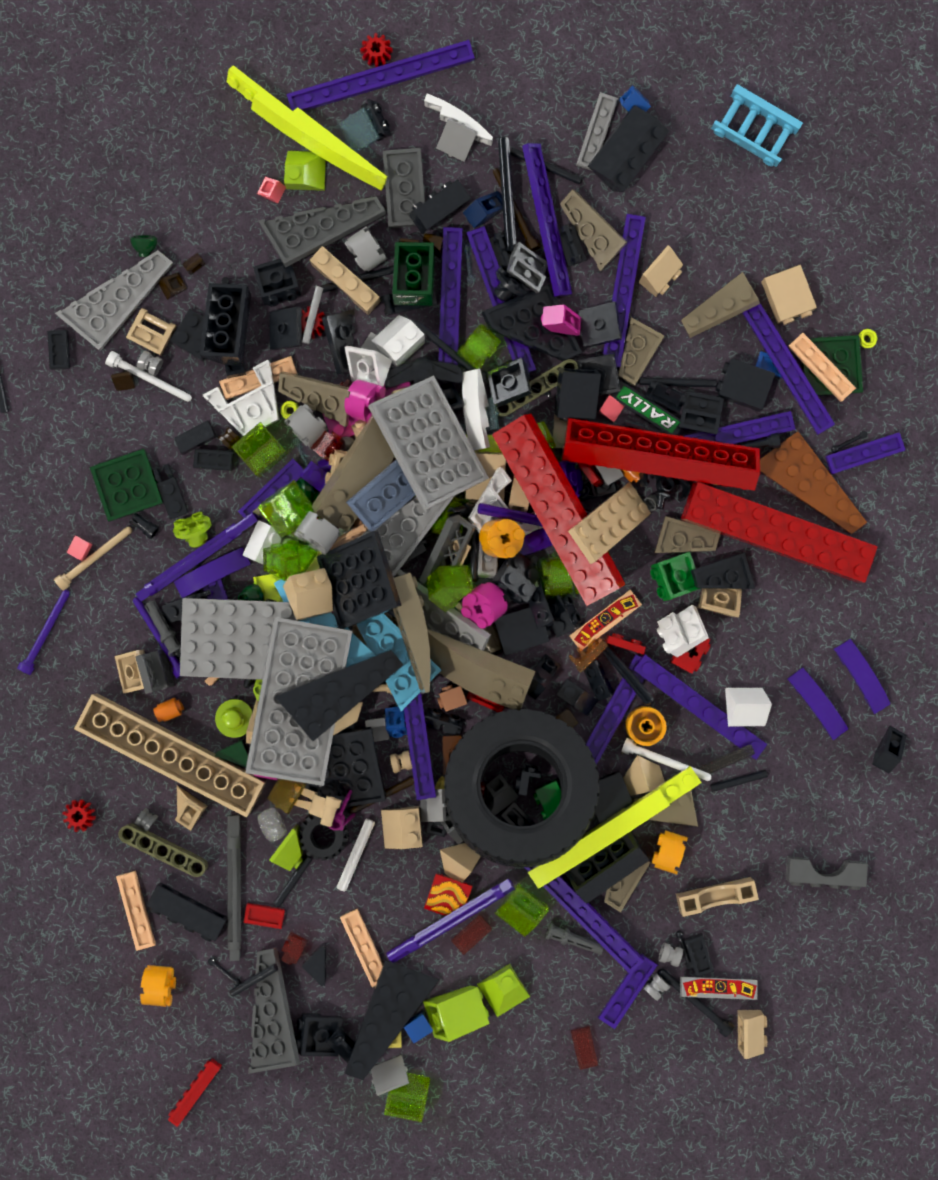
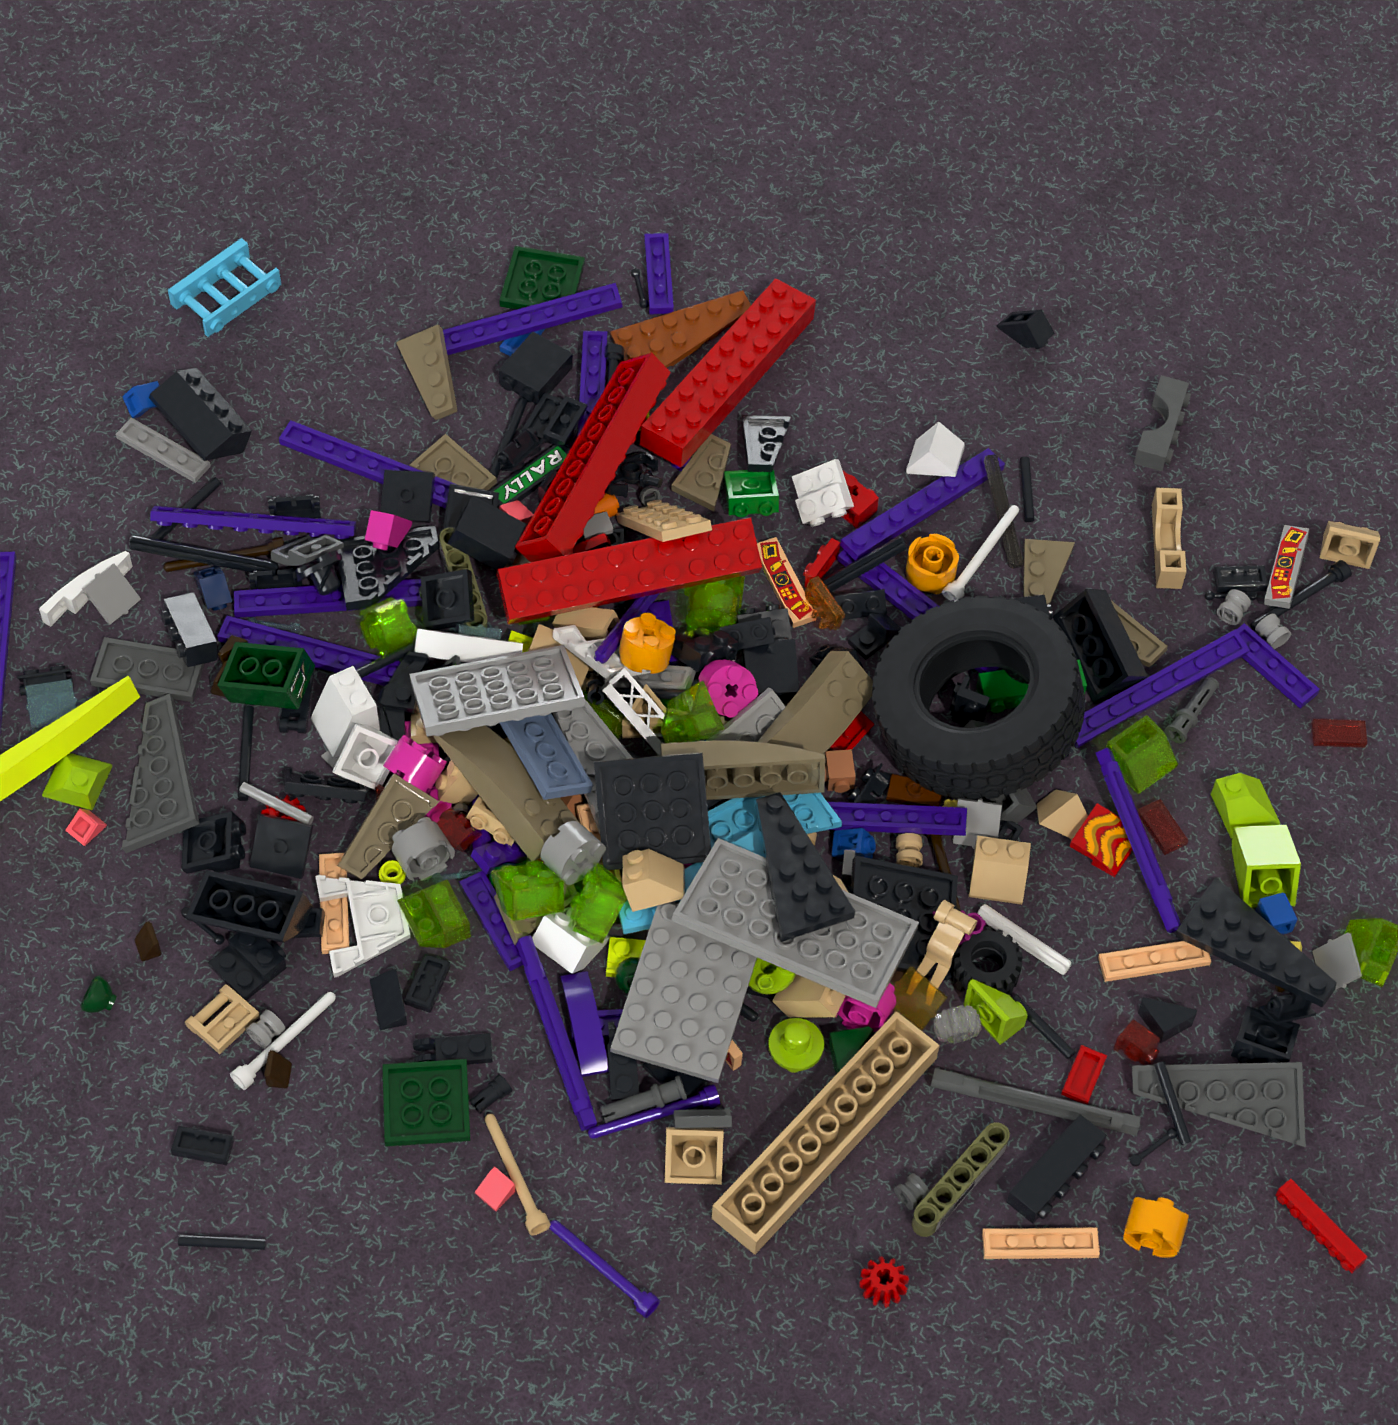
camera: 75 degrees left, 30 degrees down
(112, 303) = (165, 1063): light grey wing -> none
(168, 710) = (761, 1123): orange brick -> none
(172, 285) = (167, 980): dark brown slope -> none
(188, 809) = (909, 1132): tan slope -> none
(193, 529) = (516, 1025): lime plate -> none
(229, 438) = (405, 953): dark brown wheel -> none
(347, 281) = (219, 773): tan arch -> none
(366, 248) = (212, 724): light grey brick -> none
(598, 235) = (289, 476): dark tan wing -> none
(617, 826) = (1050, 599): neon yellow slope -> none
(643, 776) = (996, 582): tan slope -> none
(661, 271) = (365, 418): tan slope -> none
(670, 851) = (1100, 569): light orange brick -> none
(721, 601) = (797, 452): tan slope -> none
(789, 295) = (442, 301): tan brick -> none
(818, 703) = (949, 384): dark purple slope -> none
(821, 367) = (541, 287): light nougat tile -> none
(863, 676) = (927, 333): dark purple slope -> none
(873, 338) = (521, 236): neon yellow plate -> none

